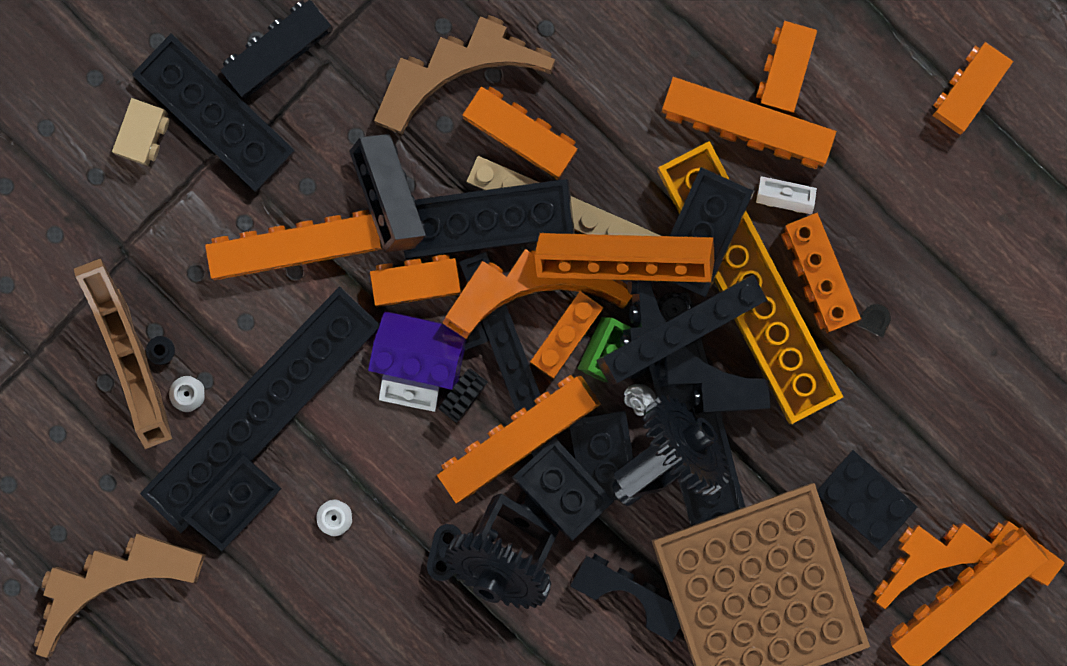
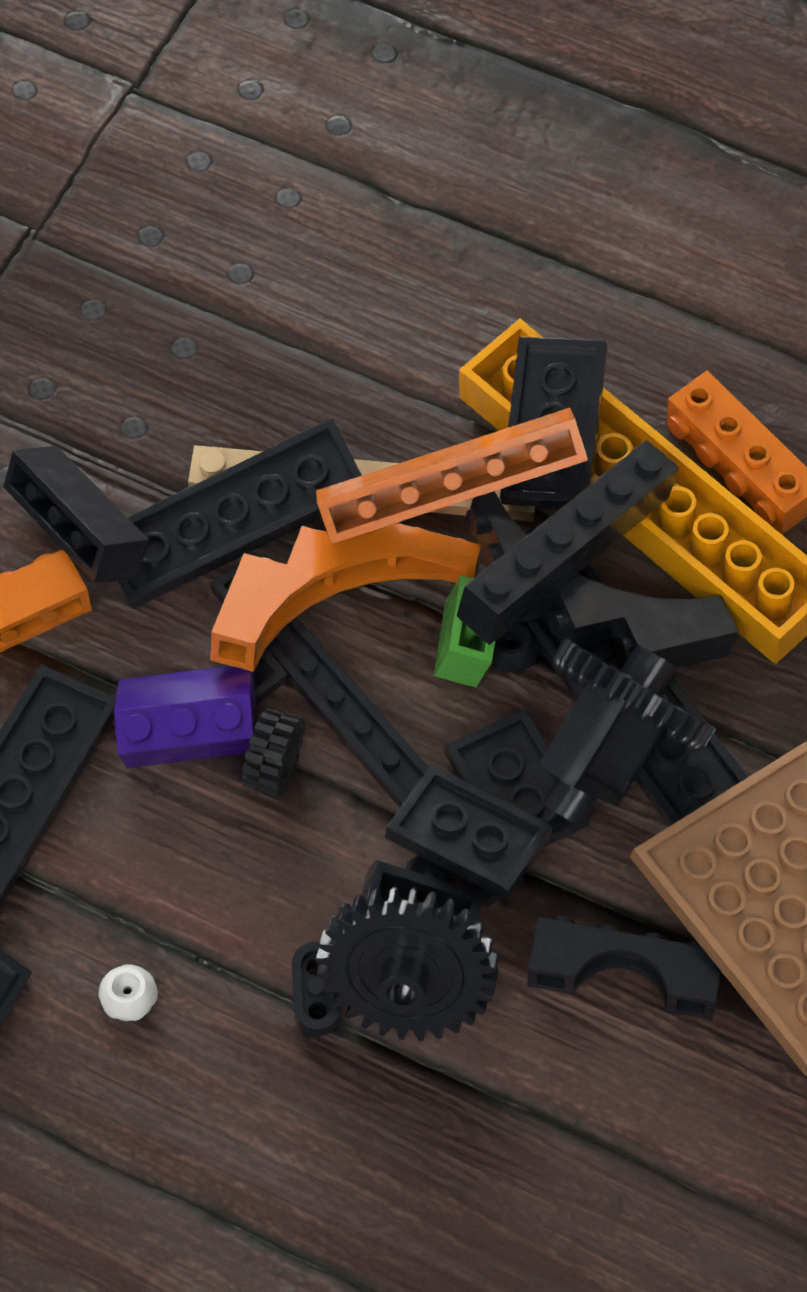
camera: 20 degrees left, 25 degrees down
(409, 393) = (190, 778): white plate -> none
(415, 281) = (151, 629): orange brick -> none
(486, 49) = (119, 336): medium nougat arch -> none
(518, 439) = (376, 783): orange brick -> none
(519, 132) = (242, 393): orange brick -> none
(566, 335) = (402, 633): orange brick -> none
(639, 397) = (542, 689): white plate -> none
(748, 122) = (567, 297): orange brick -> none
(786, 67) = (594, 220): orange brick -> none
(786, 195) = (671, 371): white plate -> none

